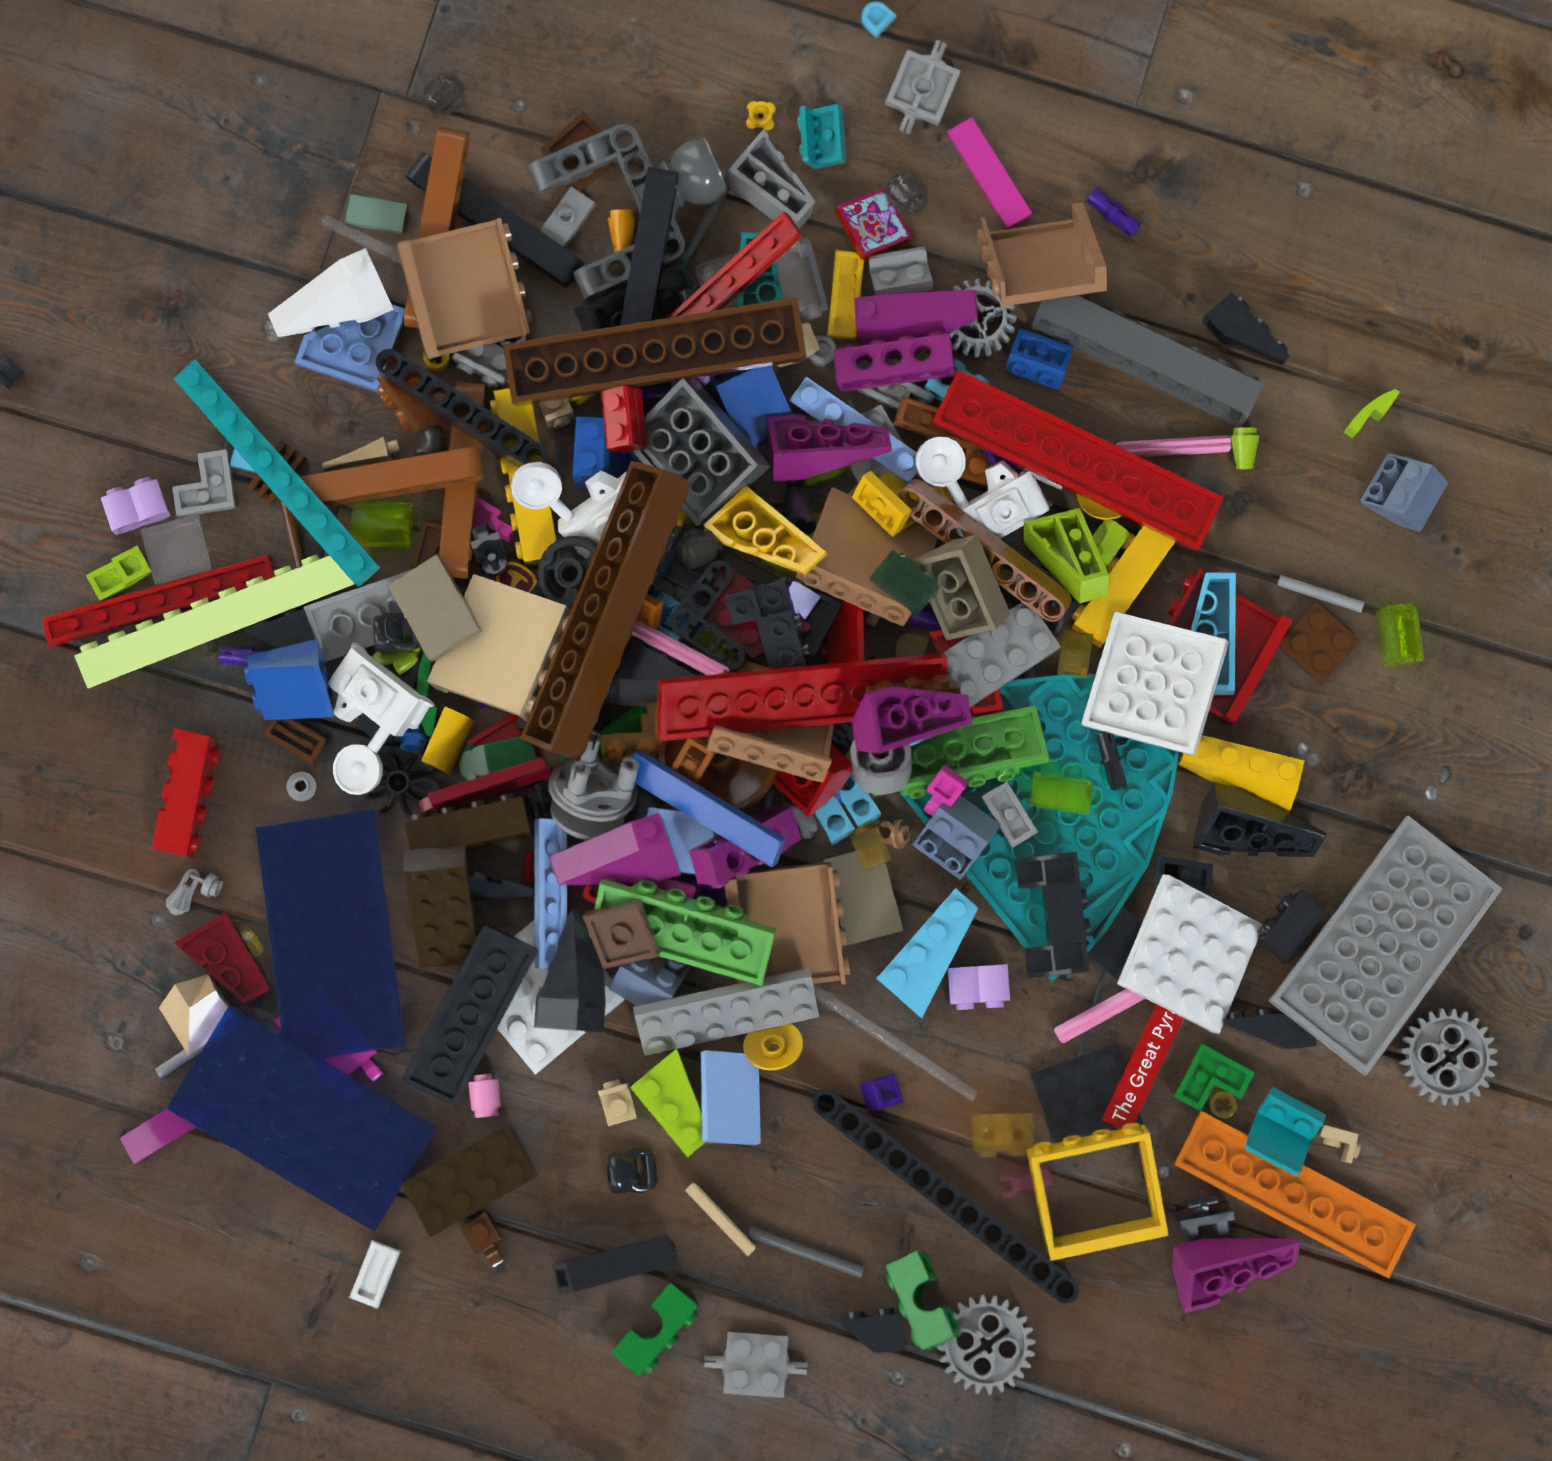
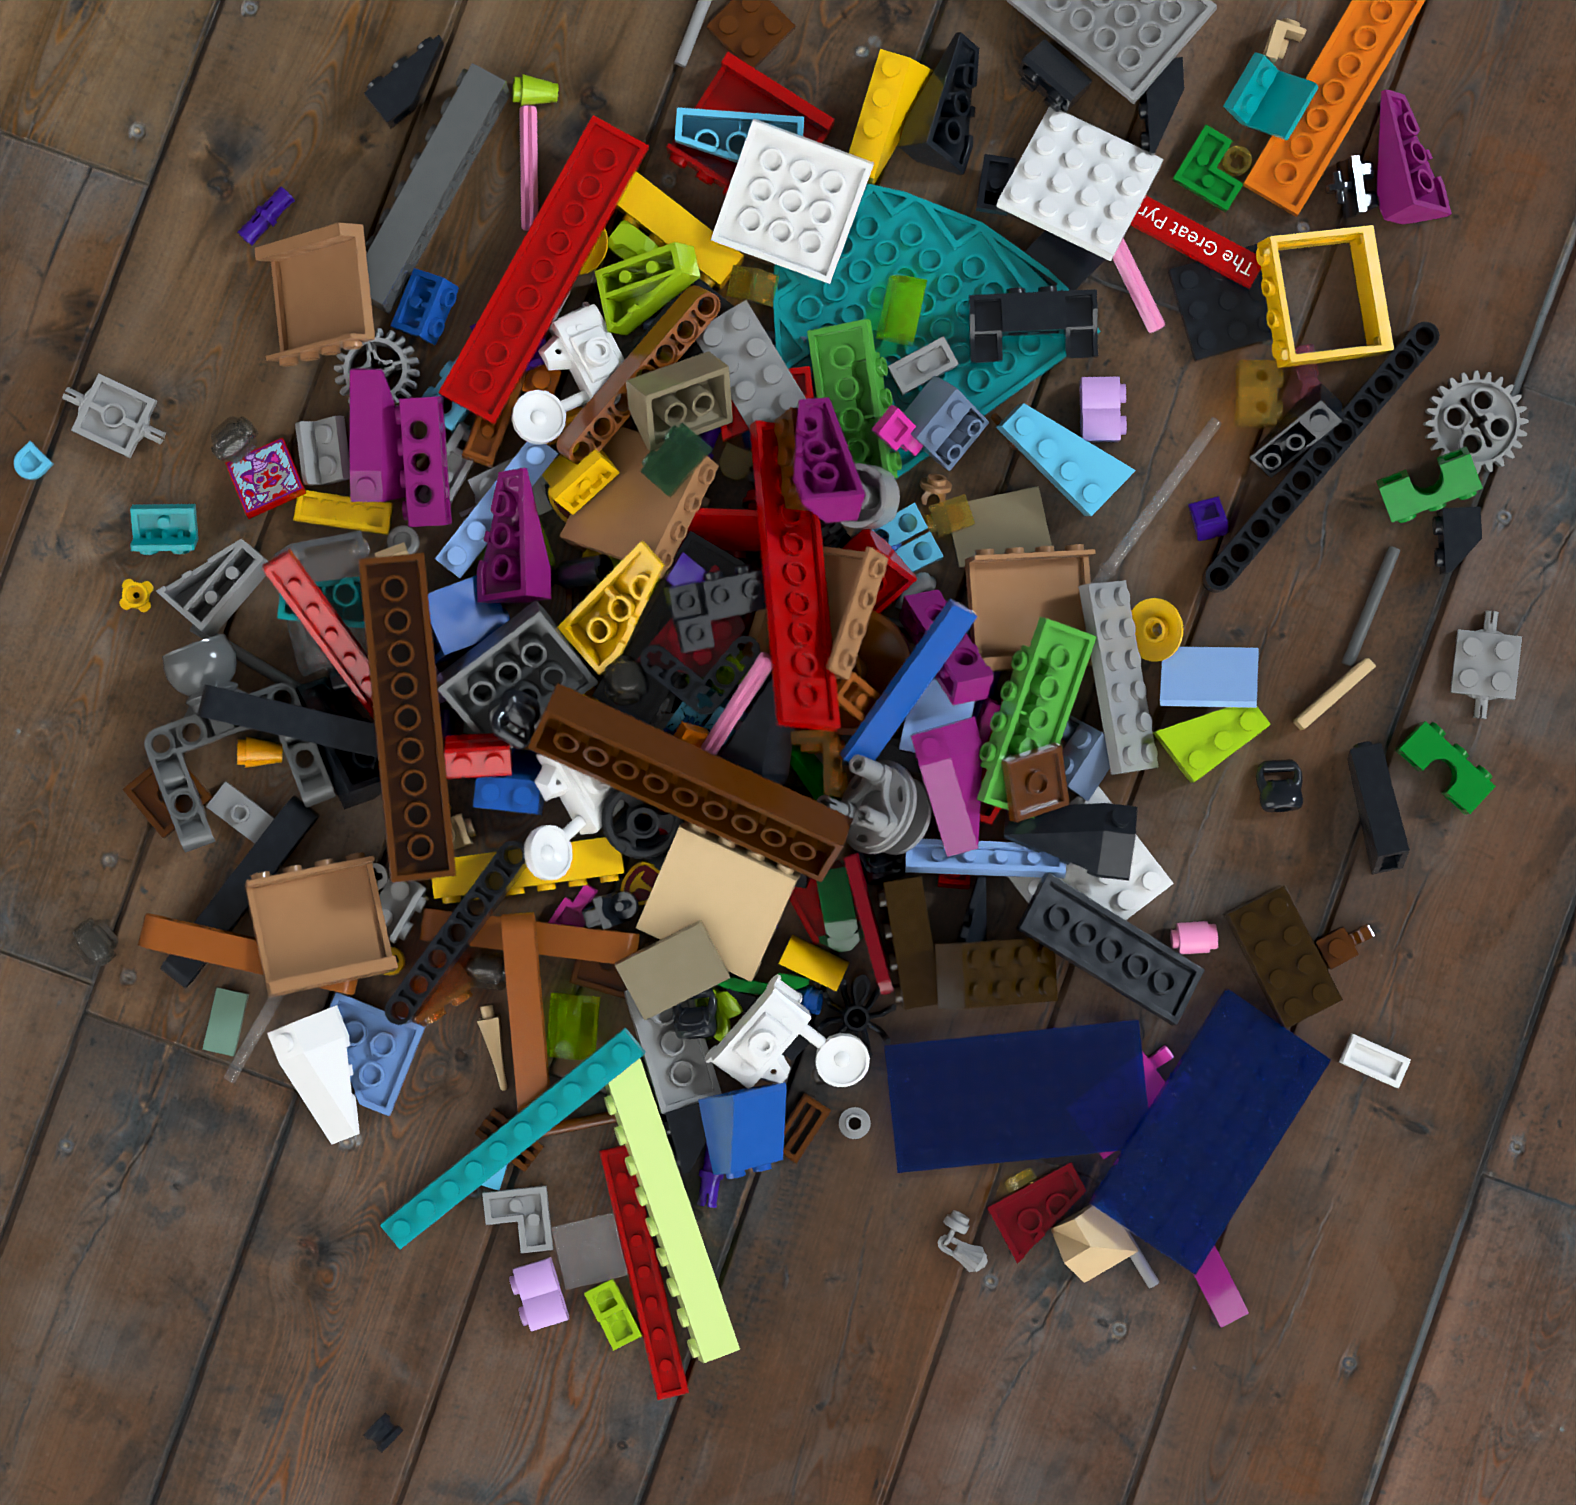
camera: 85 degrees left, 5 degrees up
(186, 793) = (859, 1246): red wedge -> none
(617, 1102) = (1207, 798): tan bracket -> none
(666, 451) = (520, 711): none -> black piece
(969, 1173) = (1298, 430): none -> black slope
(989, 173) = (214, 349): dark pink tile -> none
(1111, 761) = (870, 254): black axle -> none

